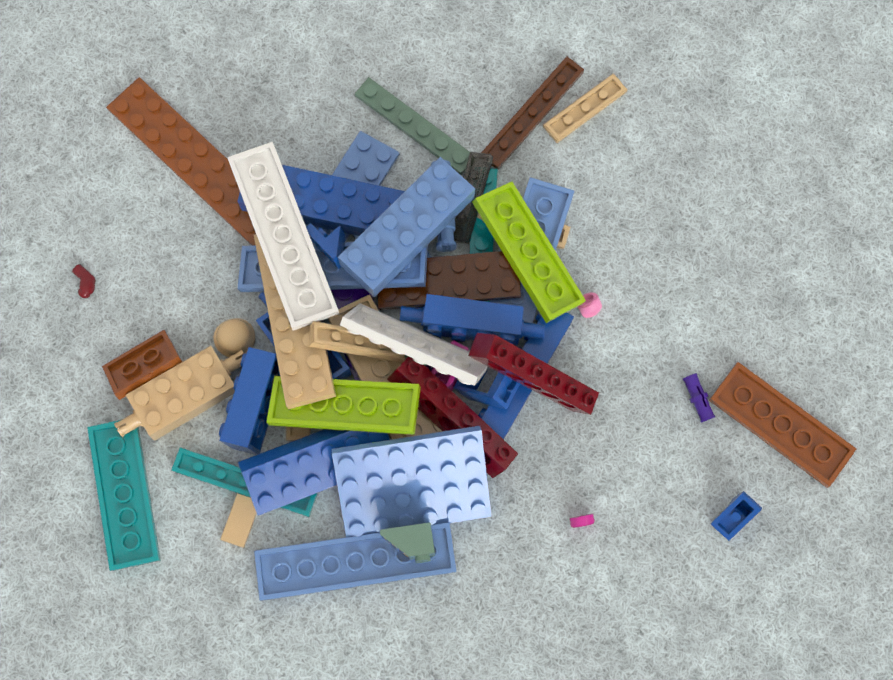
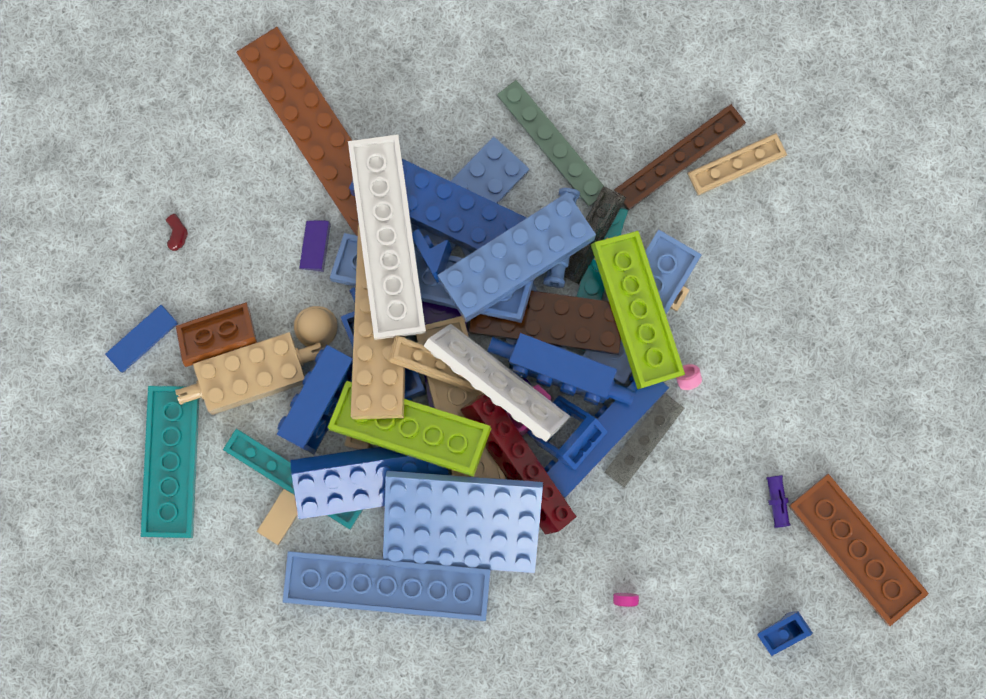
camera: 20 degrees right, 5 degrees up
(72, 385) = (141, 338): none -> blue tile
(217, 264) = (315, 245): none -> dark purple slope
(412, 541) = (447, 582): sand green slope -> none
(533, 373) = (610, 441): dark red brick -> none
(567, 362) = (644, 440): none -> clear smoke tile

